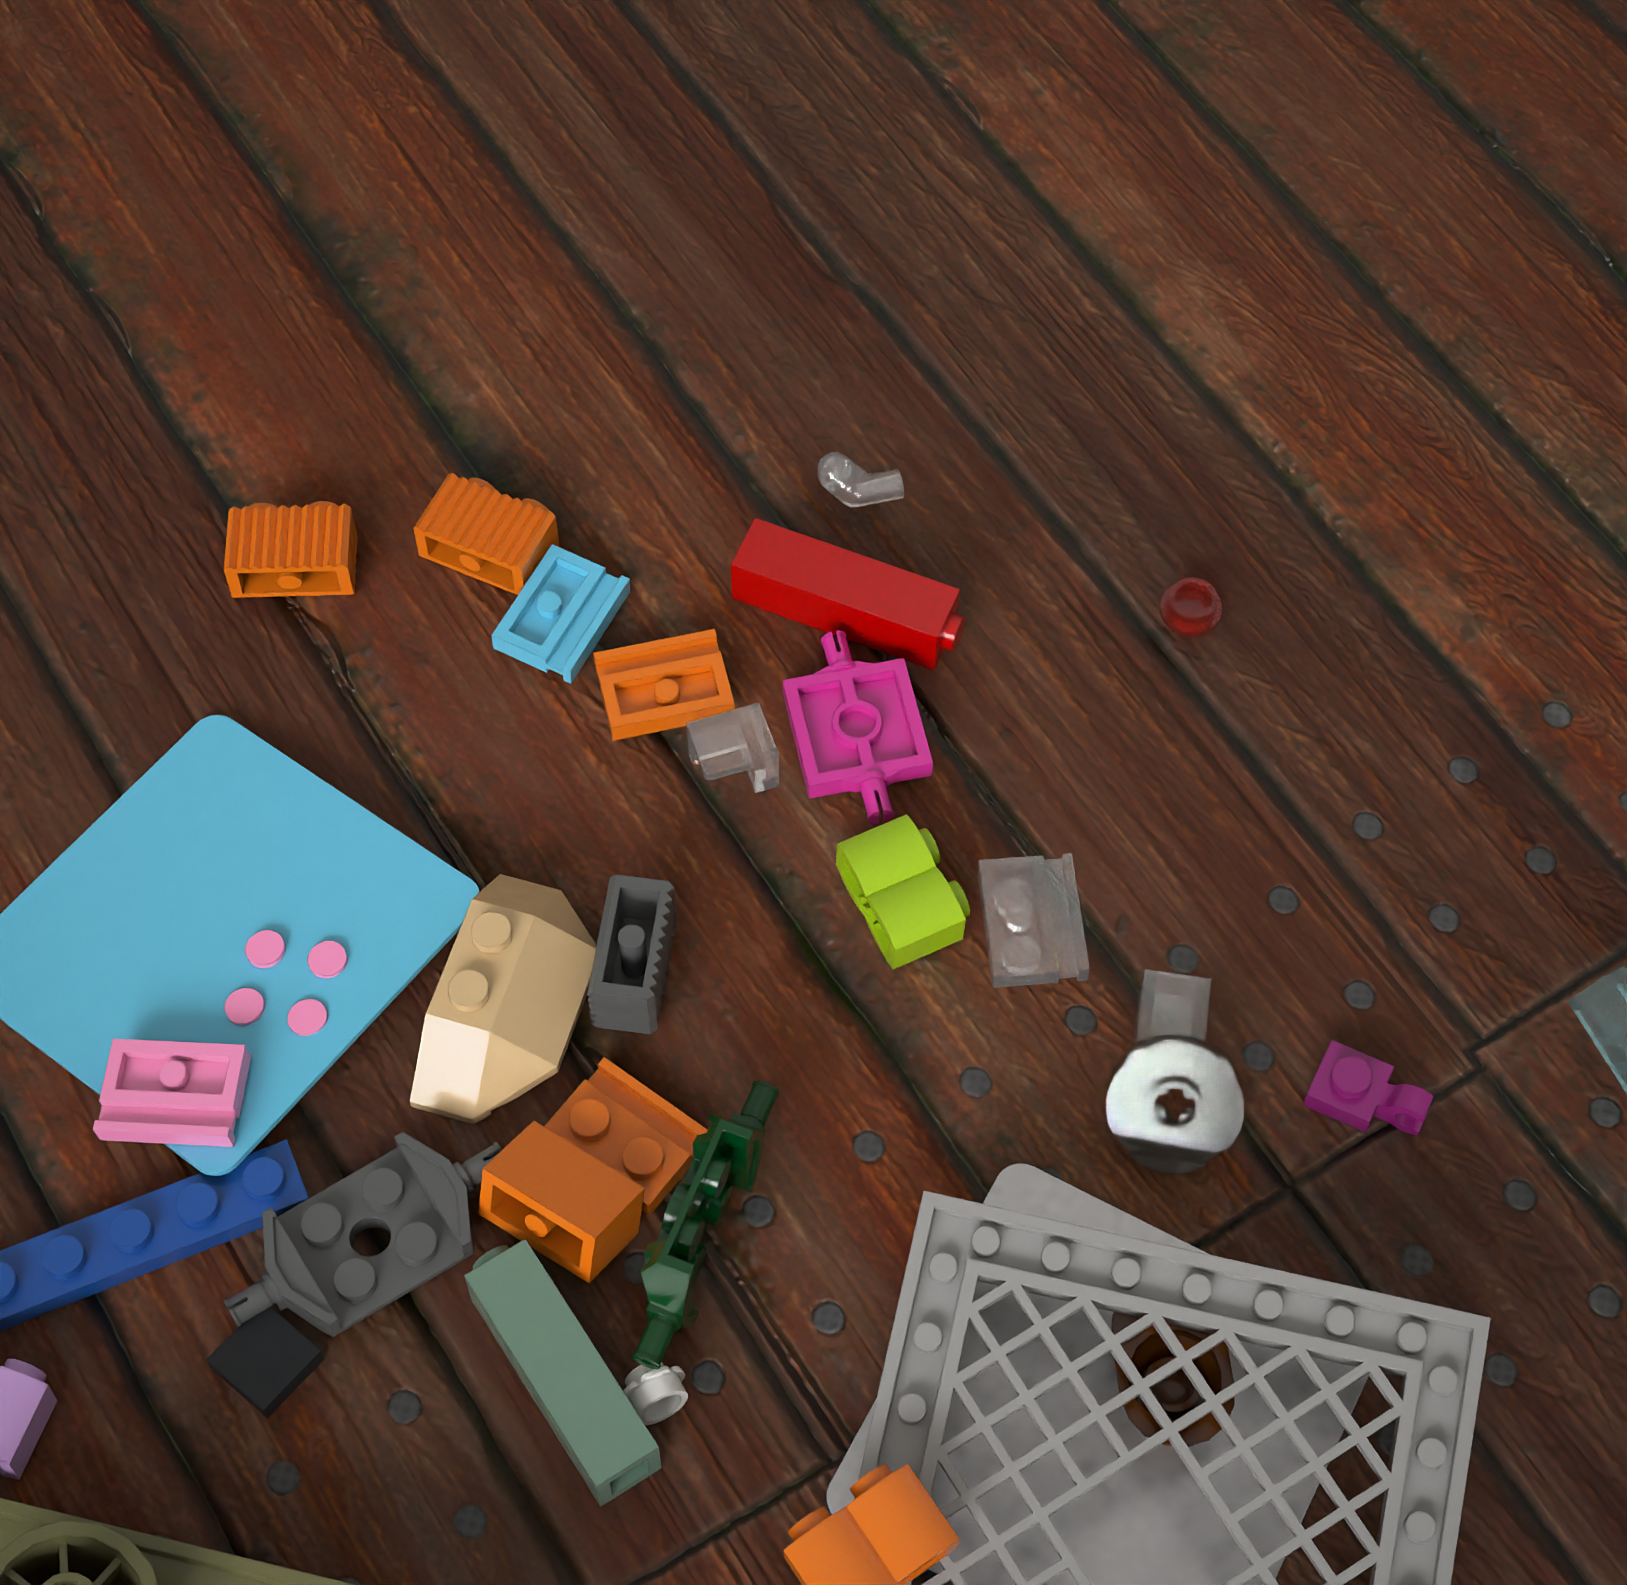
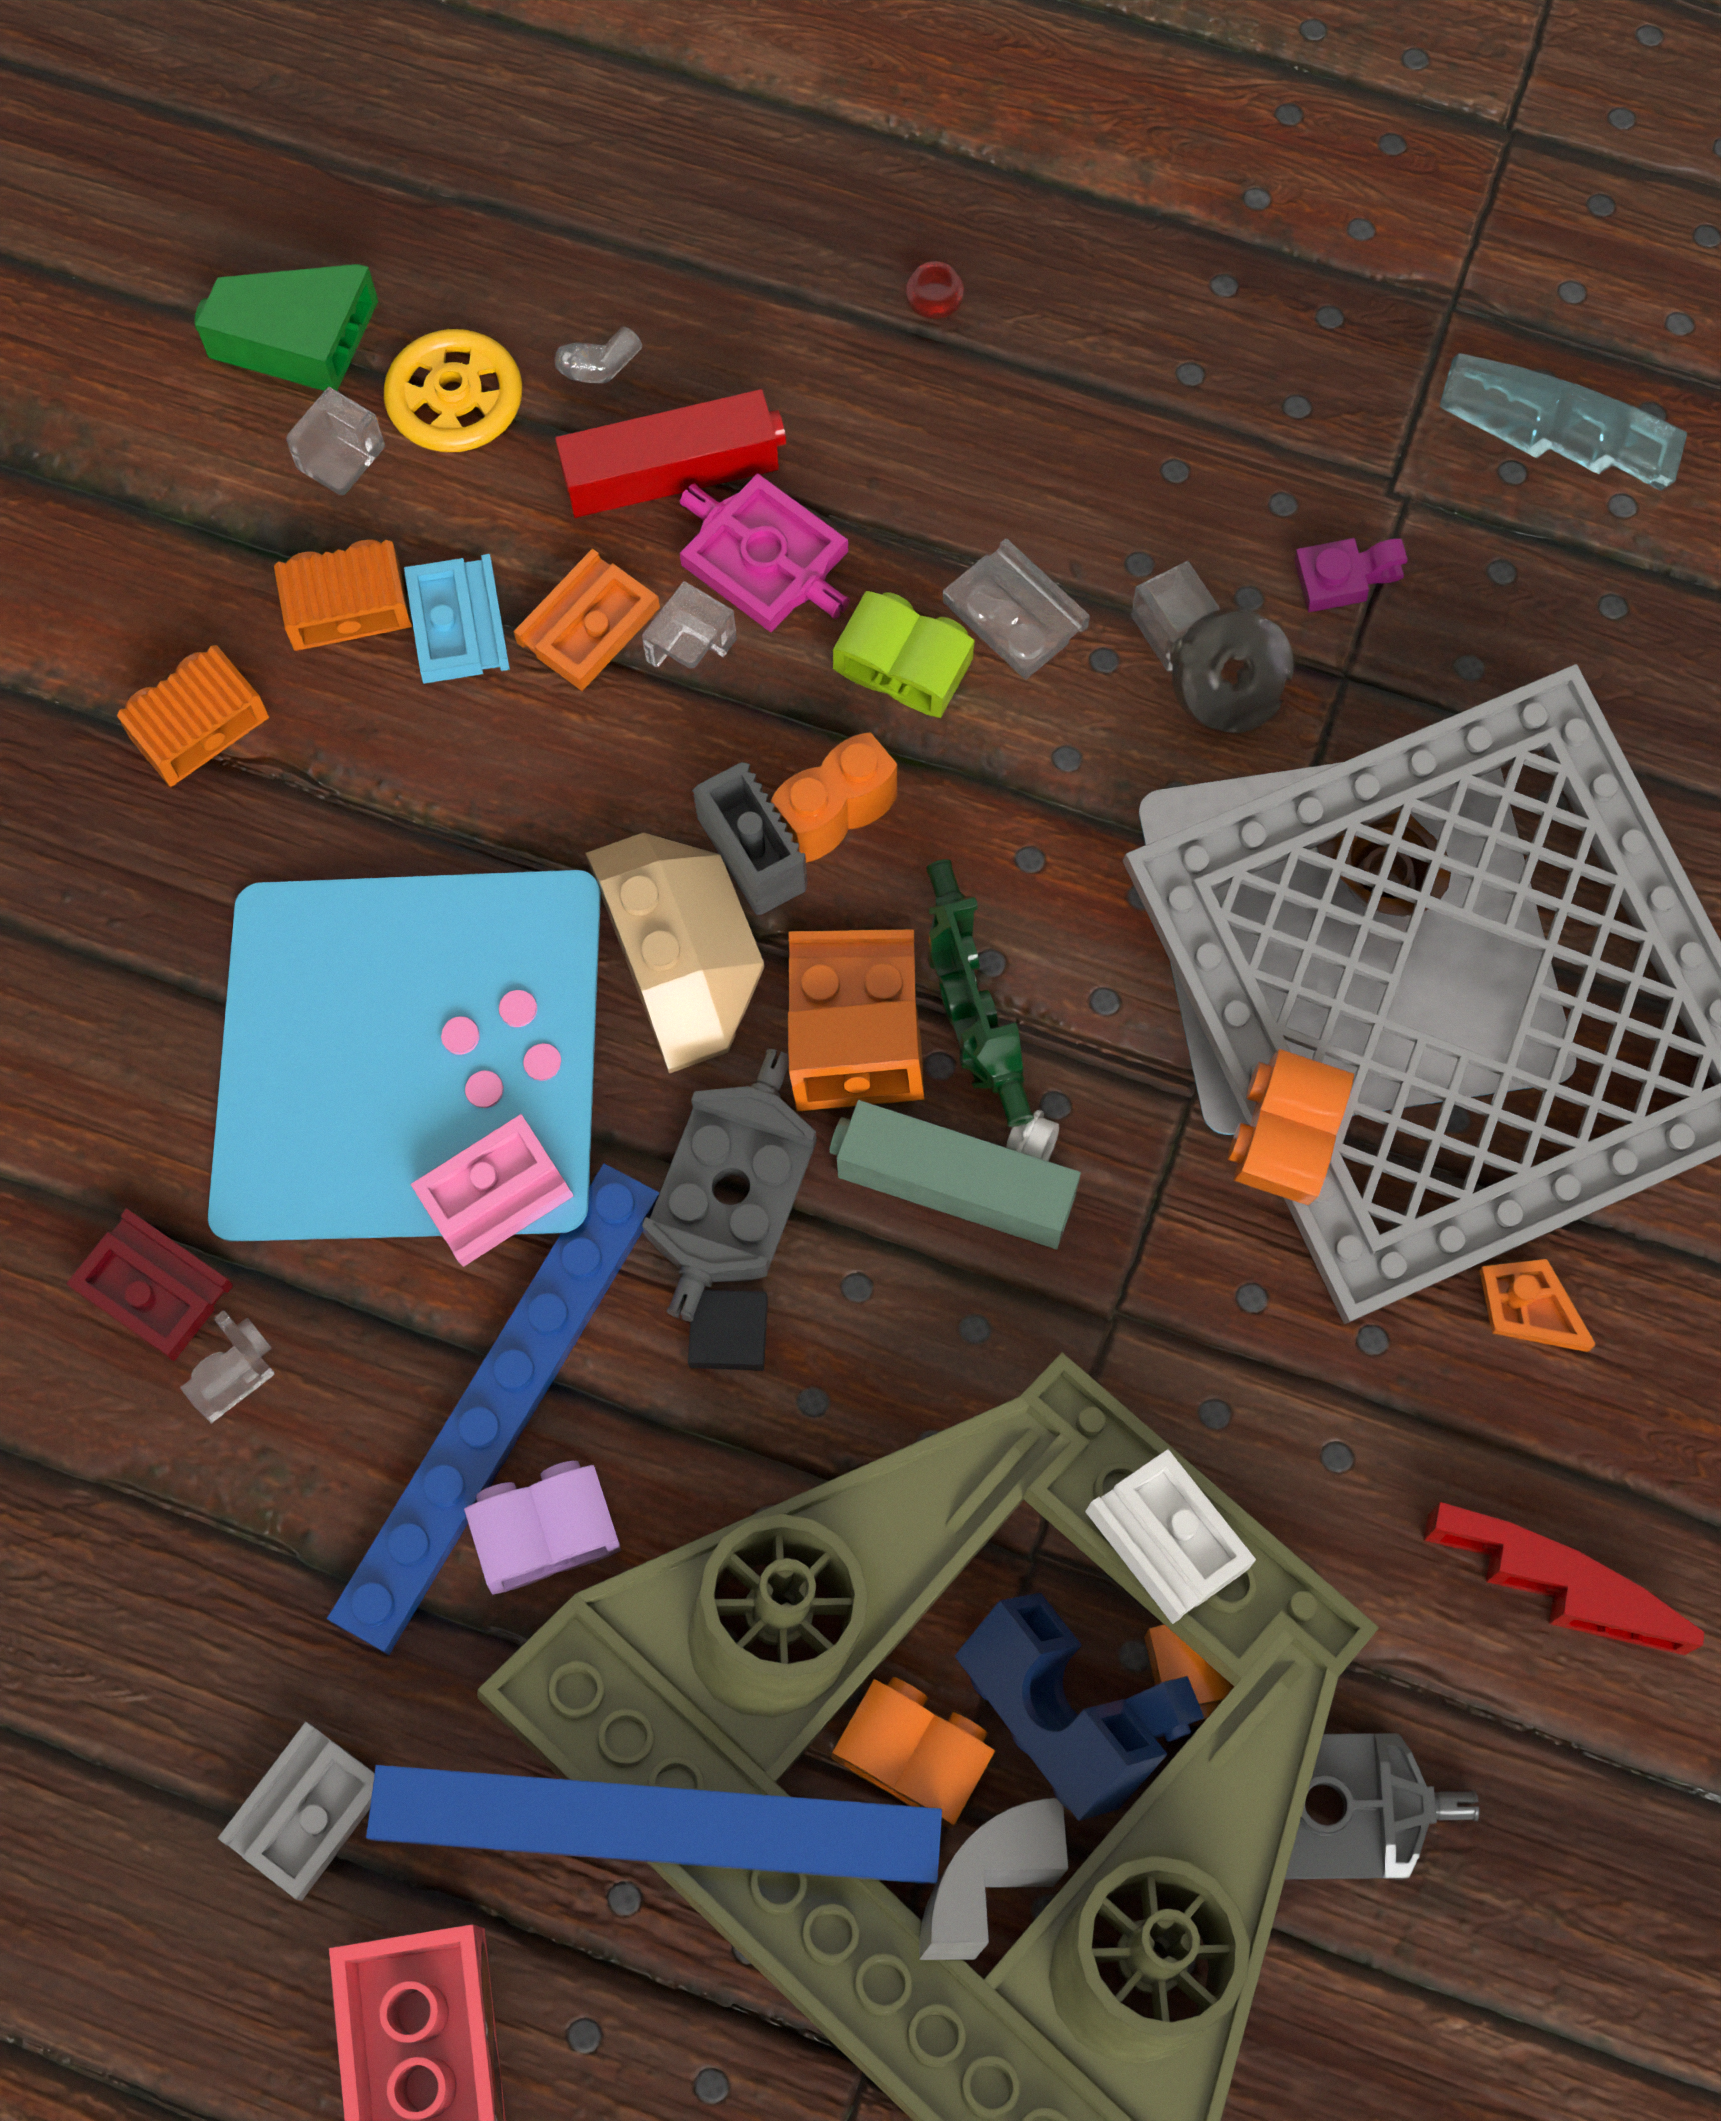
camera: 35 degrees left, 10 degrees up
(588, 411) = (335, 441): none -> clear panel
(636, 299) = (289, 322): none -> green slope
(726, 392) = (446, 432): none -> yellow plate
(728, 970) = (845, 793): none -> orange brick

